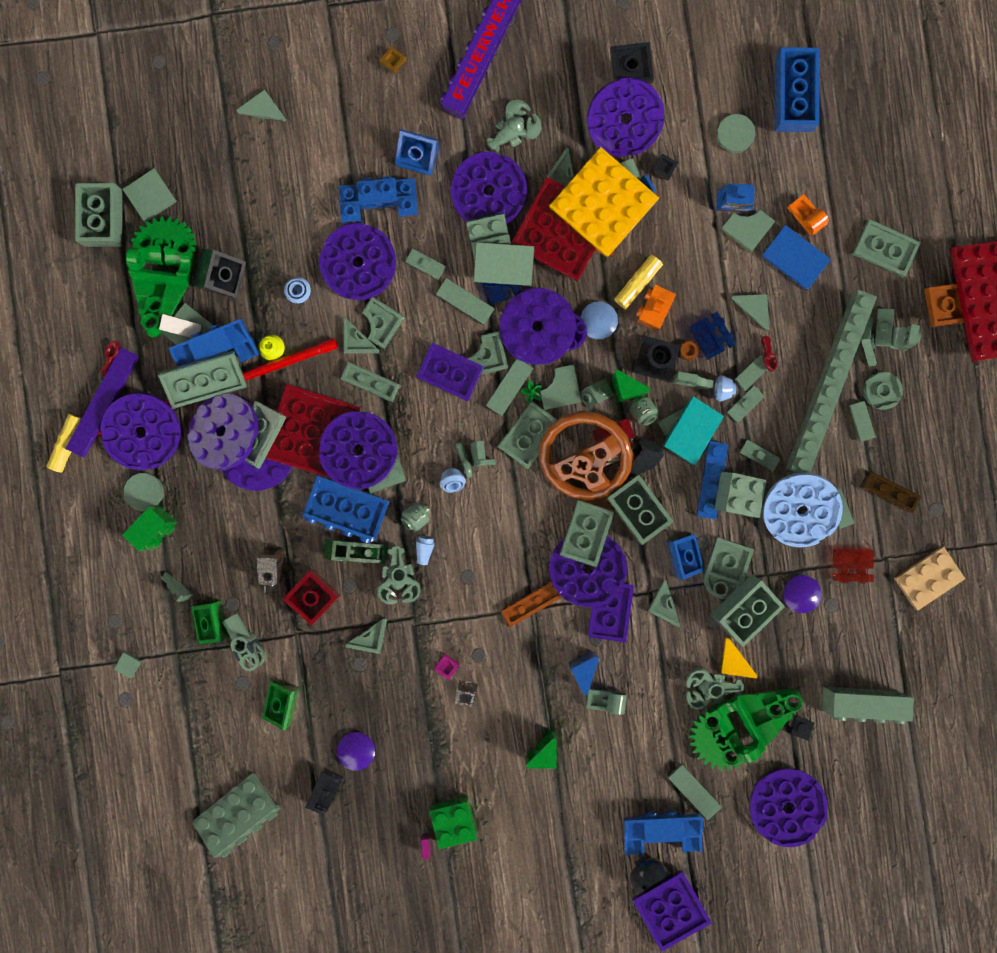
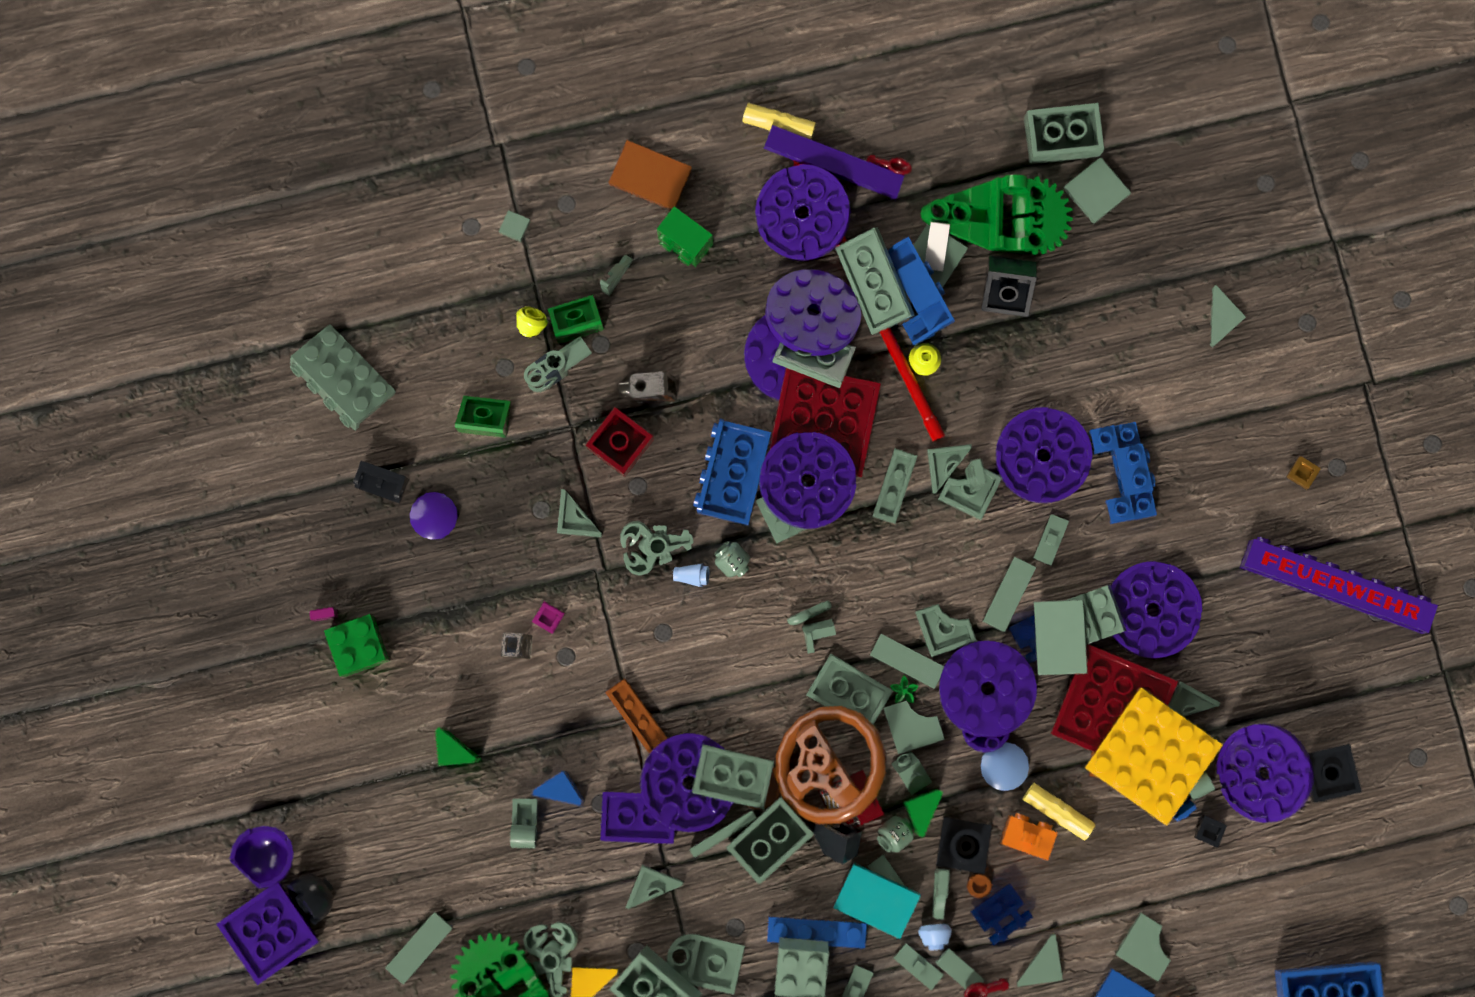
camera: 85 degrees right, 5 degrees down
(97, 551) = (650, 175): none -> dark orange tile
(143, 491) = (729, 222): sand green tile -> none
(206, 659) = (530, 321): none -> neon yellow cone
(297, 285) = (1005, 382): light blue cone -> none
(354, 551) = (681, 488): dark green slope -> none
(368, 315) = (975, 475): none -> sand green tile
(416, 152) = (1189, 514): blue slope -> none
(450, 372) = (918, 584): dark purple plate -> none
(452, 480) = (782, 601): light blue cone -> none
(515, 126) = (1238, 634): sand green animal -> none
(612, 912) = (263, 855): none -> dark purple cylinder
(630, 546) = (723, 834): none -> sand green tile
(663, 827) = (371, 911): blue bracket -> none
(685, 556) = (716, 907): blue slope -> none
(735, 133) = (1265, 919): sand green tile -> none
(737, 198) = (1180, 926): blue torso -> none

